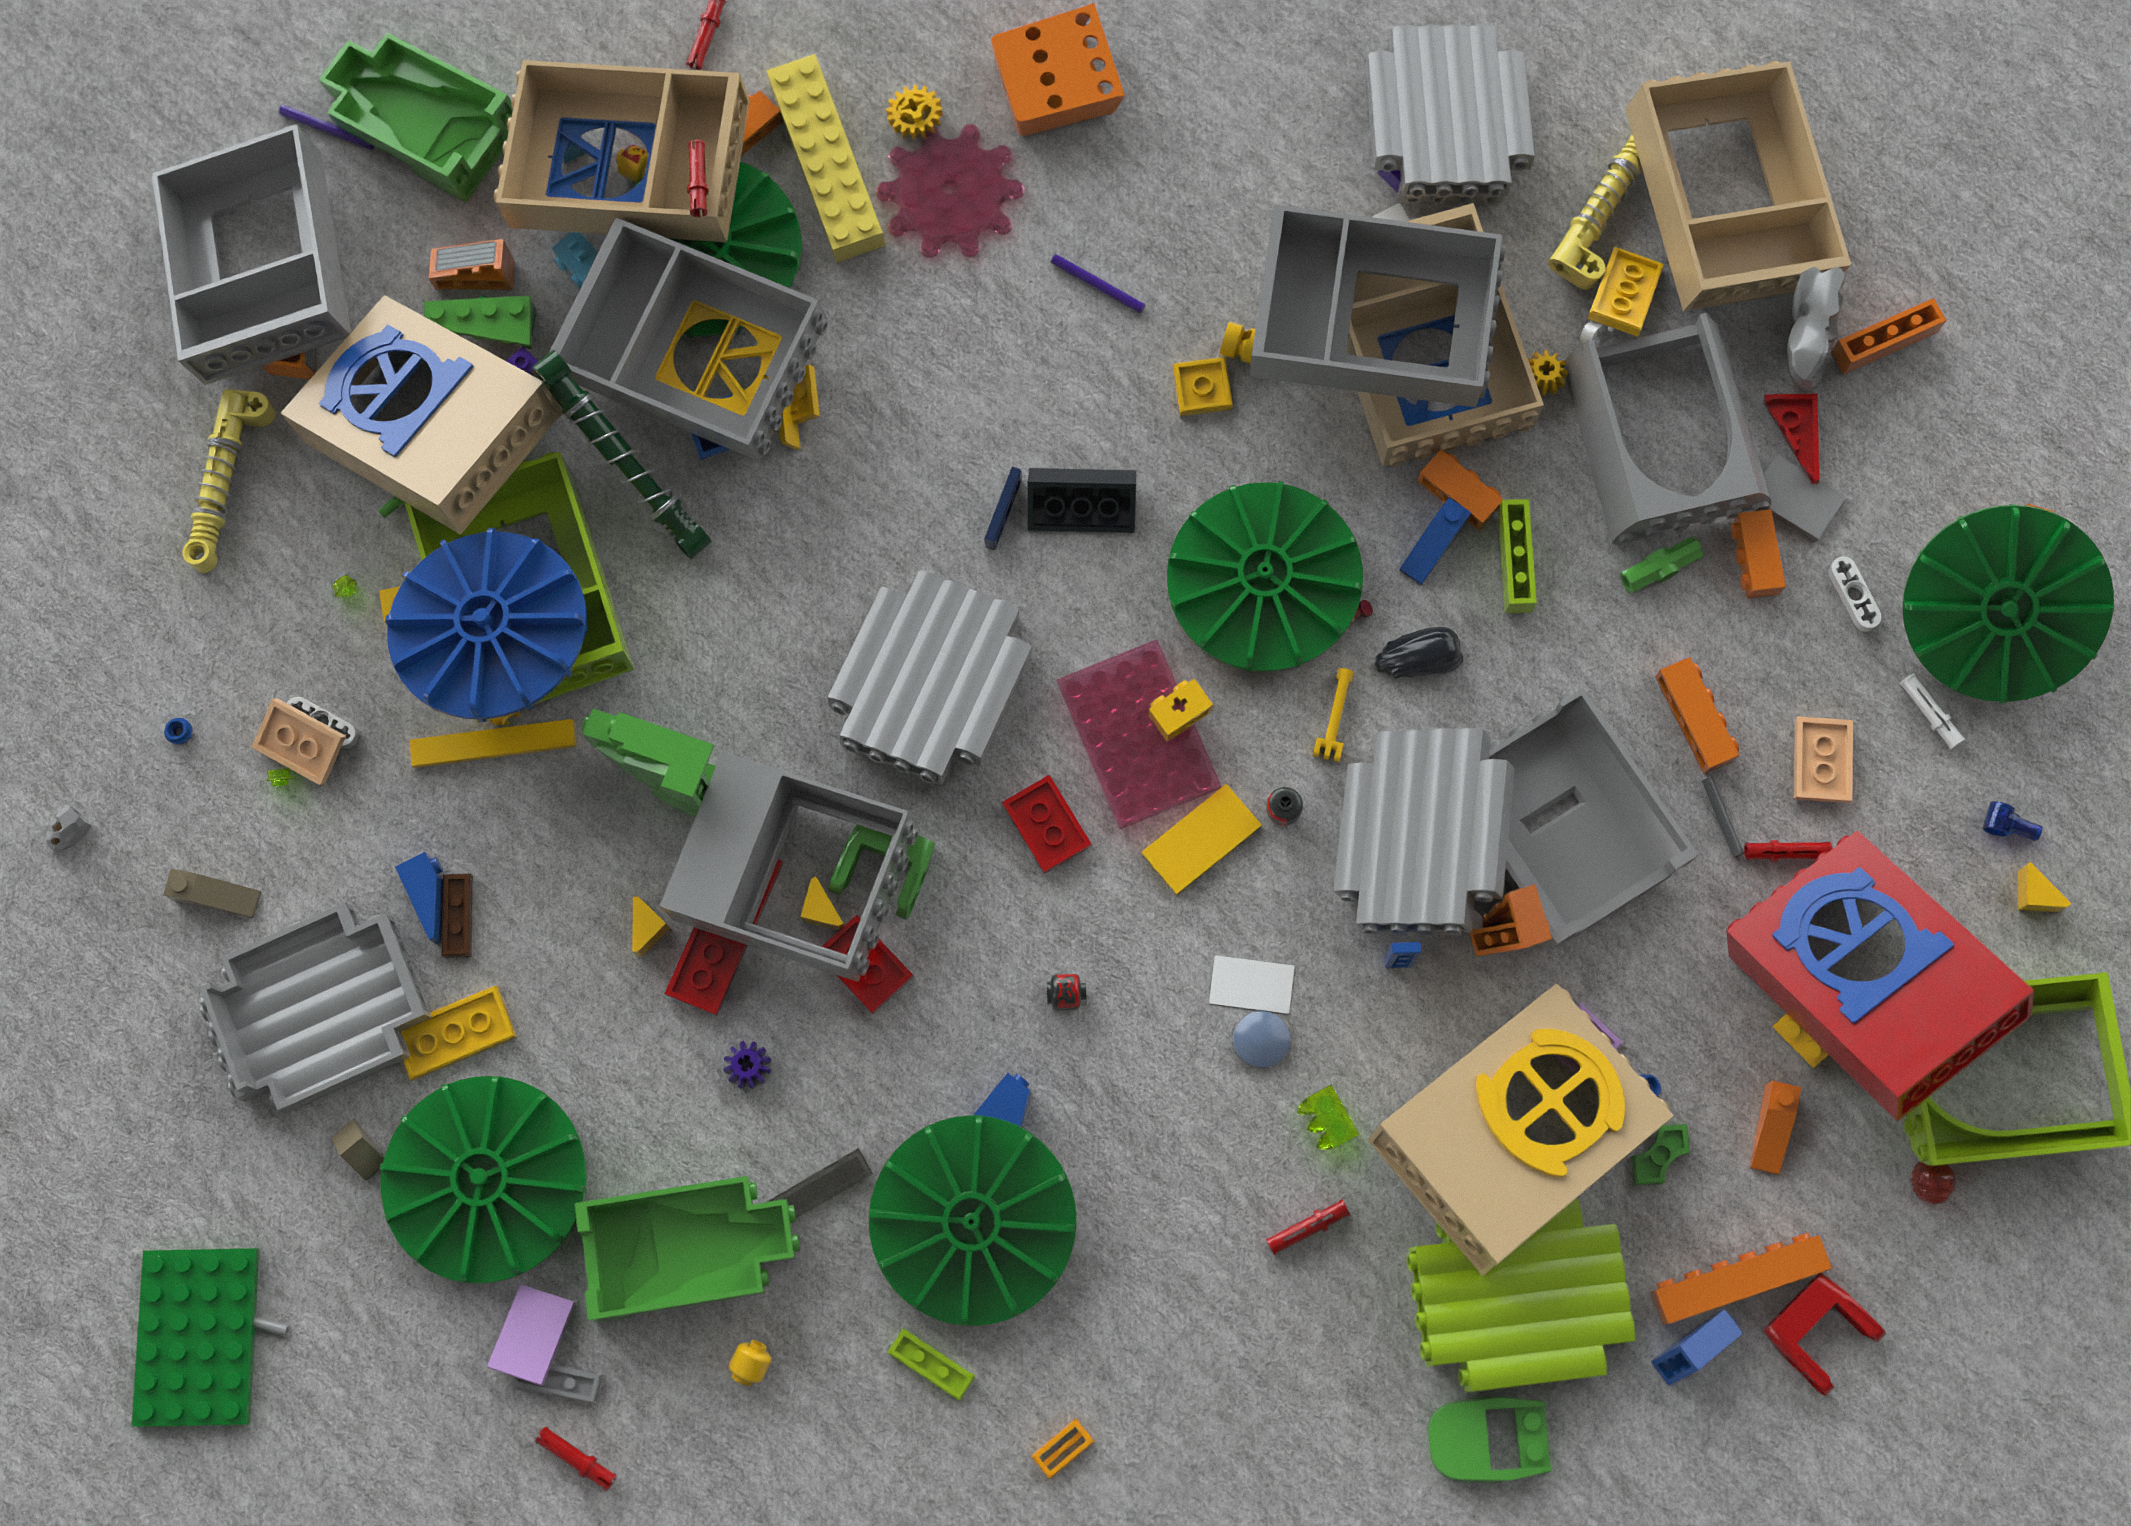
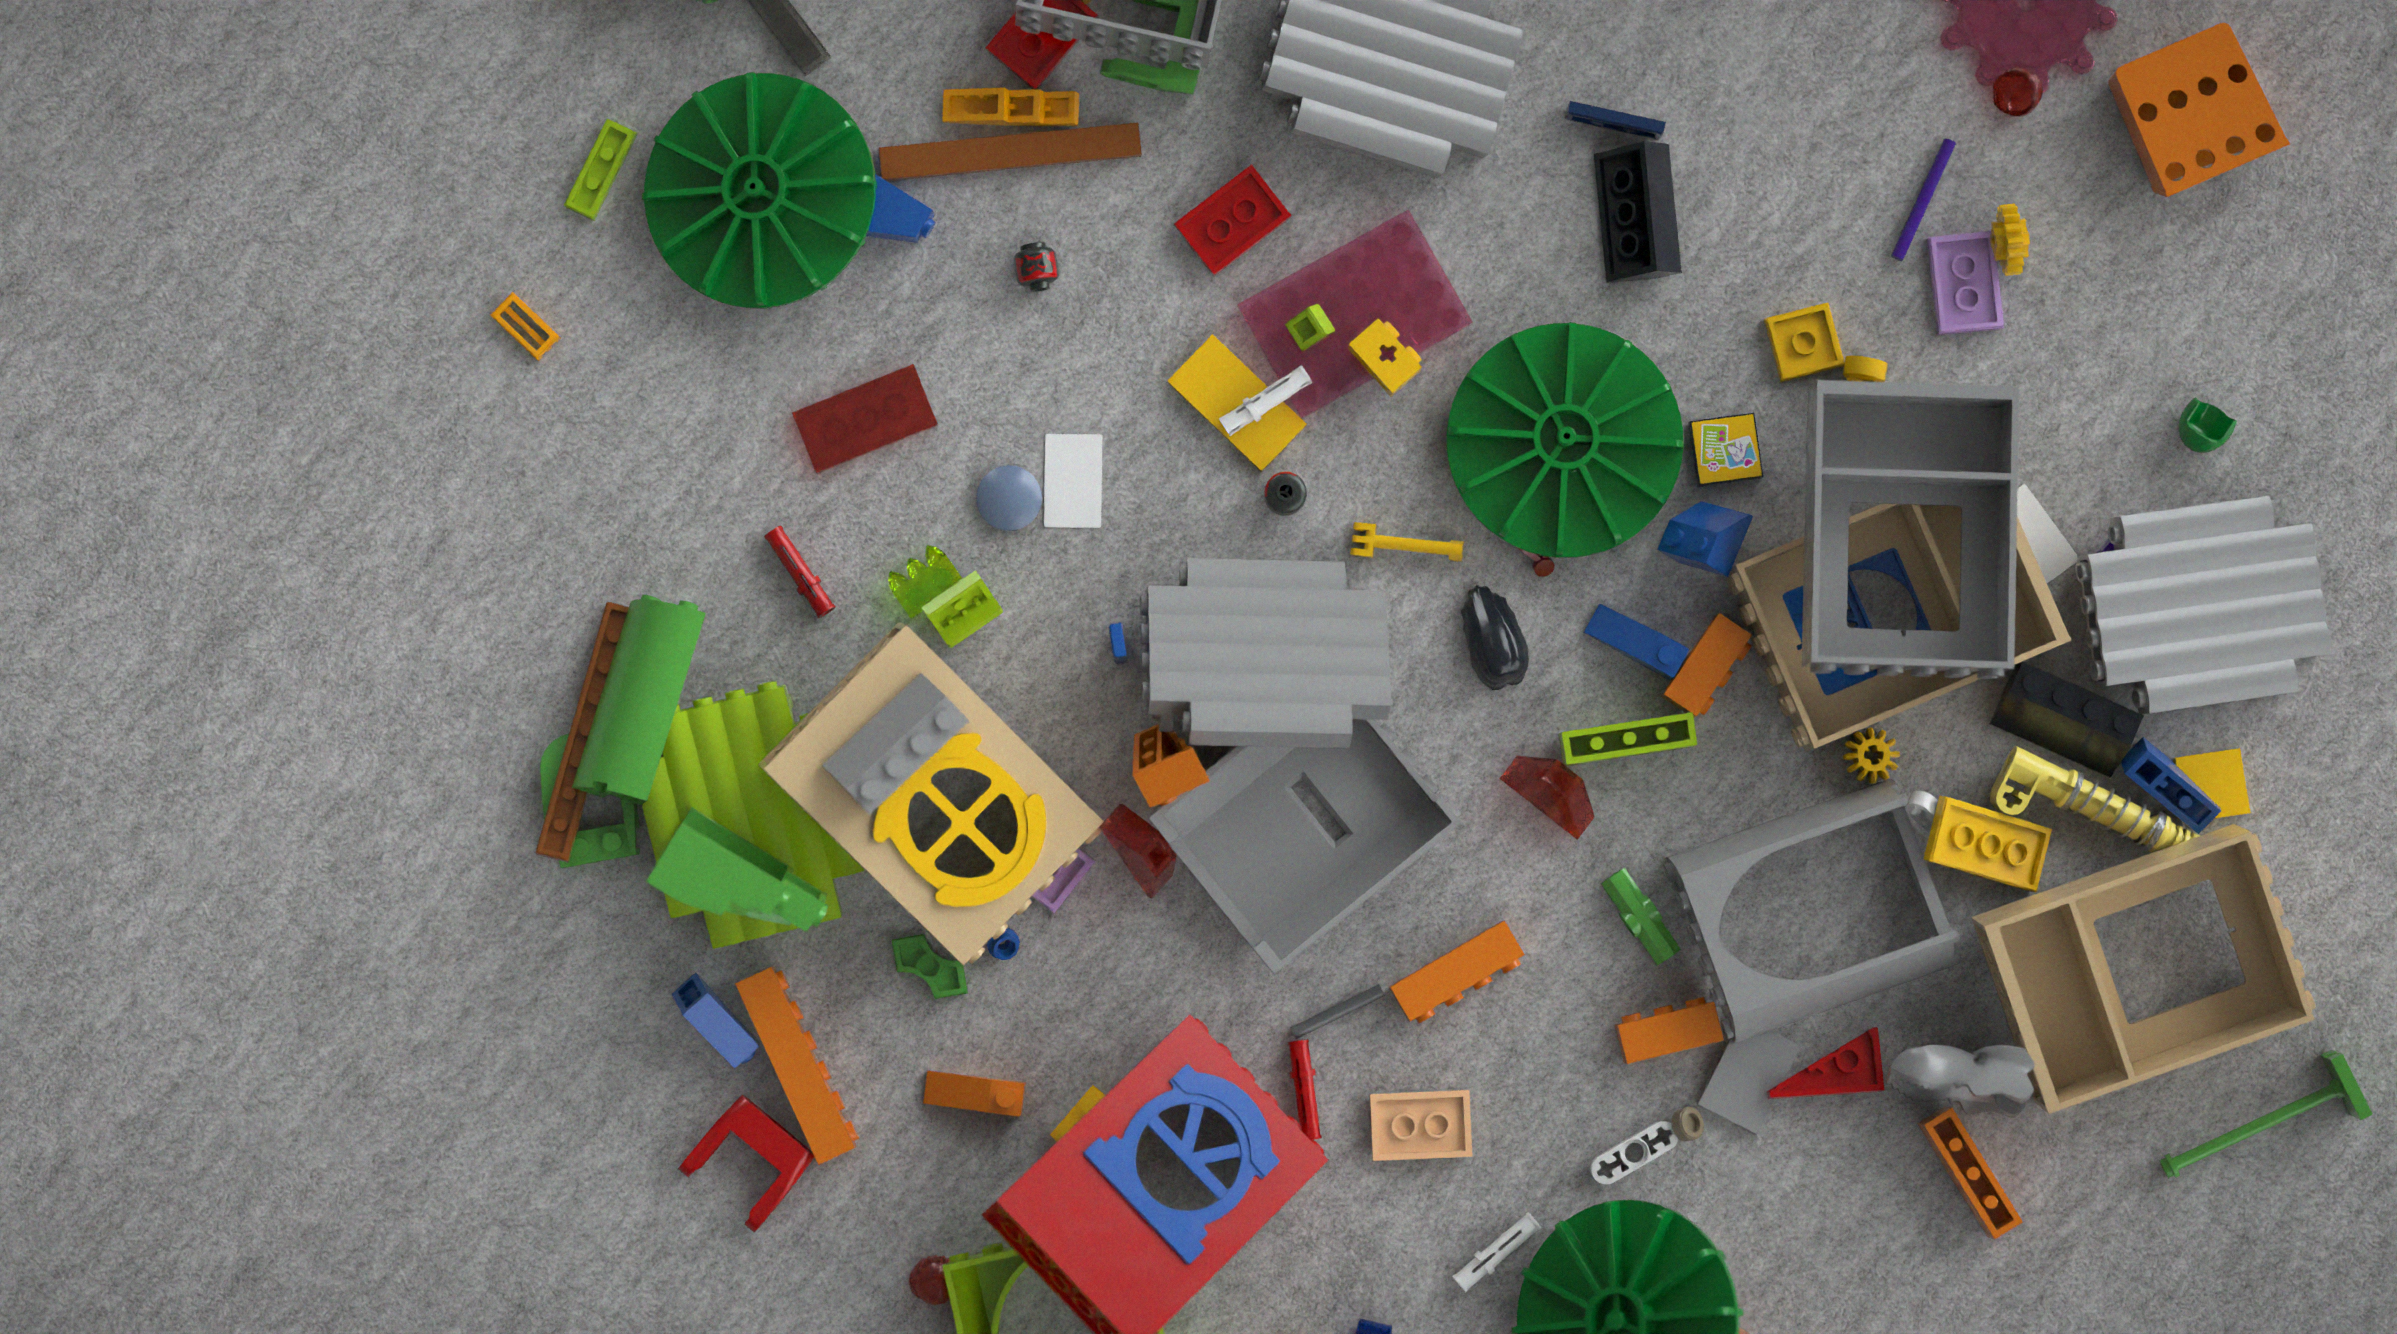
camera: 75 degrees right, 10 degrees up
(925, 998) = (1010, 107): none -> light orange slope
(963, 1004) = (1010, 151): none -> dark orange tile
(1022, 201) = (2017, 92): none -> clear red hair
(1141, 217) = (2009, 239): none -> yellow gear
(1146, 769) = (1310, 327): none -> lime slope
(1169, 260) = (1964, 283): none -> lavender tile
(1179, 1155) = (865, 419): none -> clear red tile
(1204, 812) = (1265, 400): none -> white pin
(1283, 455) = (1725, 449): none -> tile
(1306, 95) = (2204, 426): none -> green hair
(1356, 474) = (1706, 537): none -> blue slope
(1356, 1088) = (962, 609): none -> lime bracket
(1413, 1378) = (639, 699): none -> bright green cylinder
(1434, 1432) = (566, 802): none -> dark orange tile
(1485, 1143) = (895, 743): none -> light grey slope
(1532, 221) = (2066, 719): none -> black slope
(1552, 621) = (1552, 790): none -> clear red slope
(1577, 958) = (1140, 848): none -> clear red slope
(1586, 1307) = (727, 873): none -> bright green panel
(1587, 154) = (2169, 785): none -> blue slope
(1588, 127) = (2220, 778): none -> yellow tile
(1835, 548) = (1687, 1124): none -> dark tan tile
(1836, 55) = (2341, 1086): none -> bright green tile

